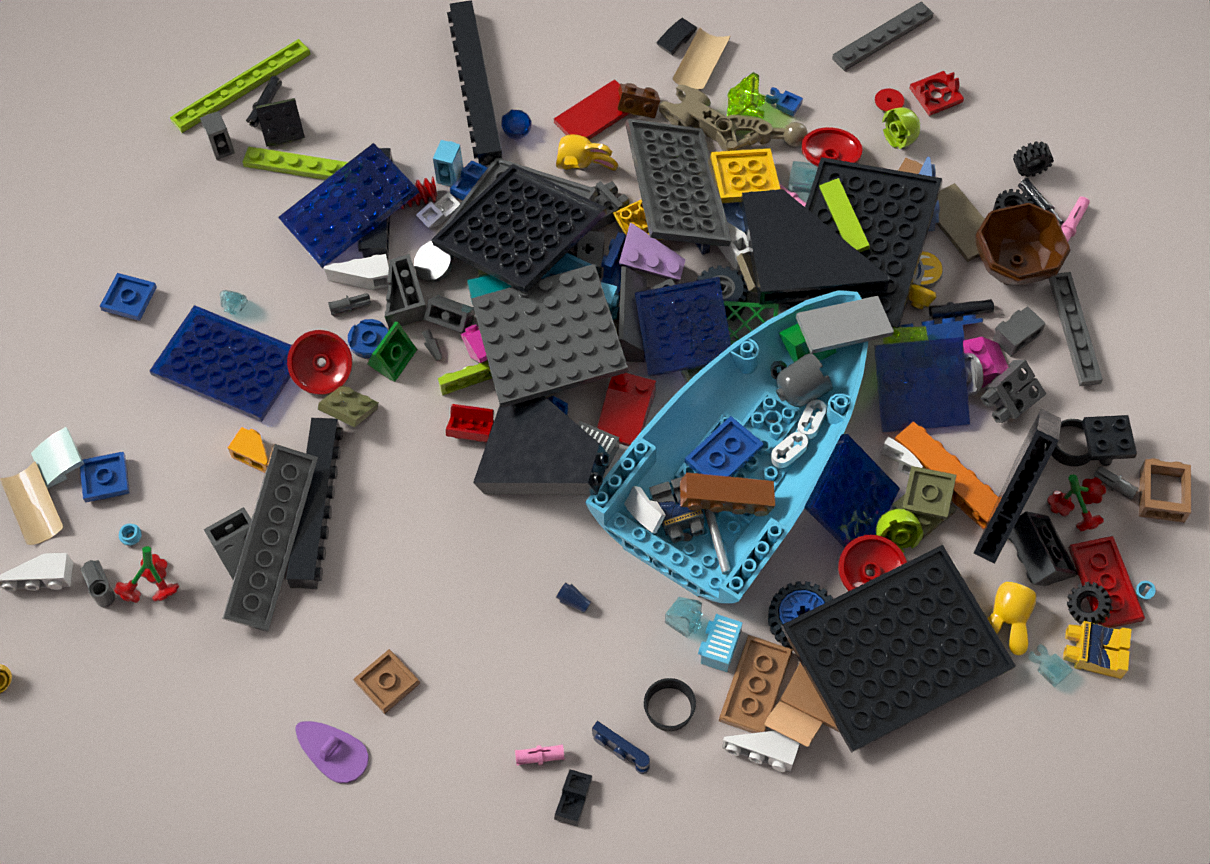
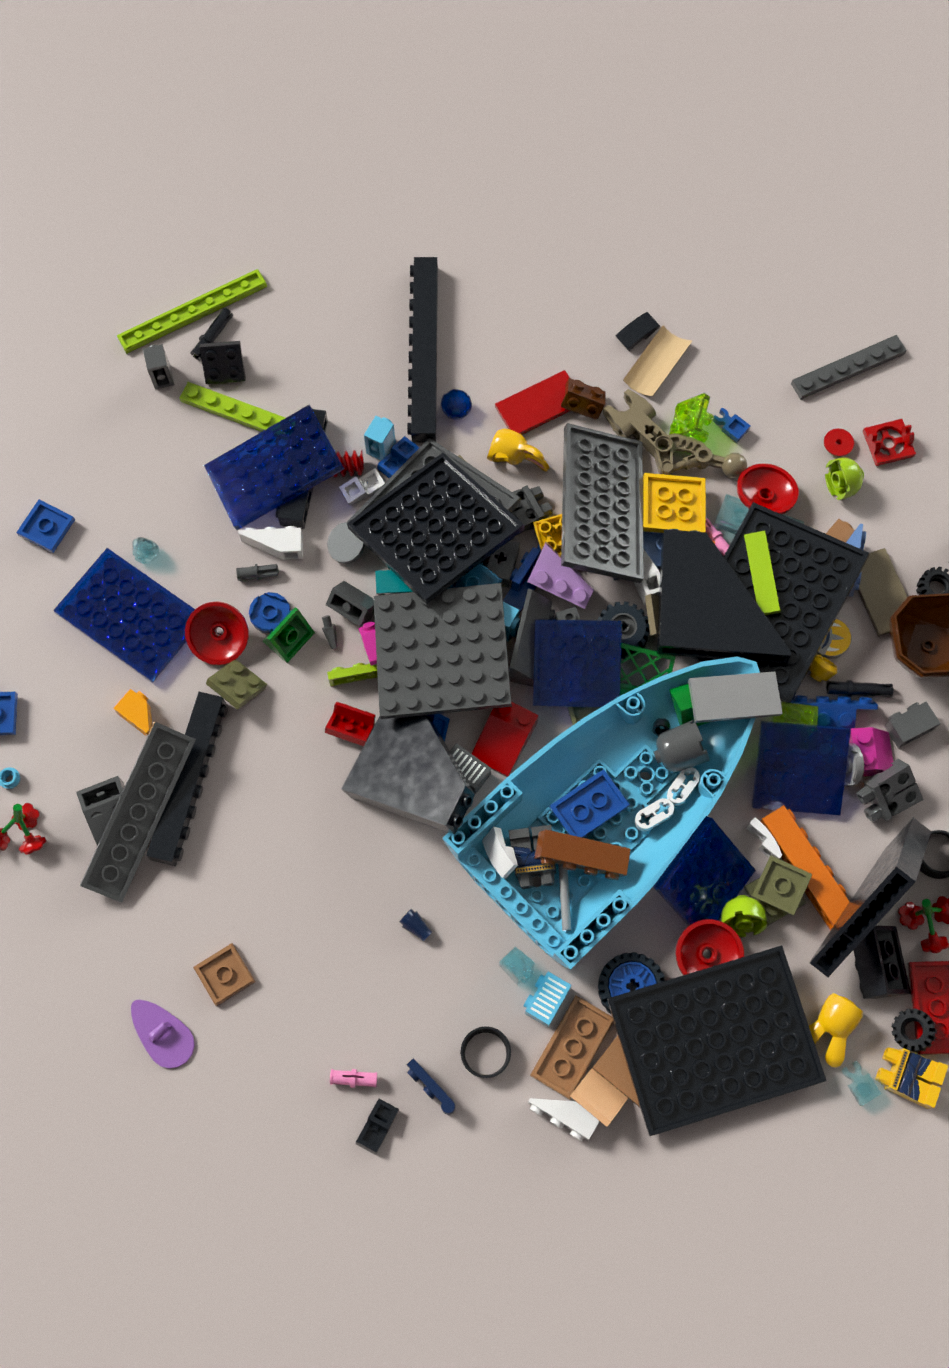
camera: 10 degrees right, 10 degrees up
(404, 294) = (312, 574): dark grey wedge -> none

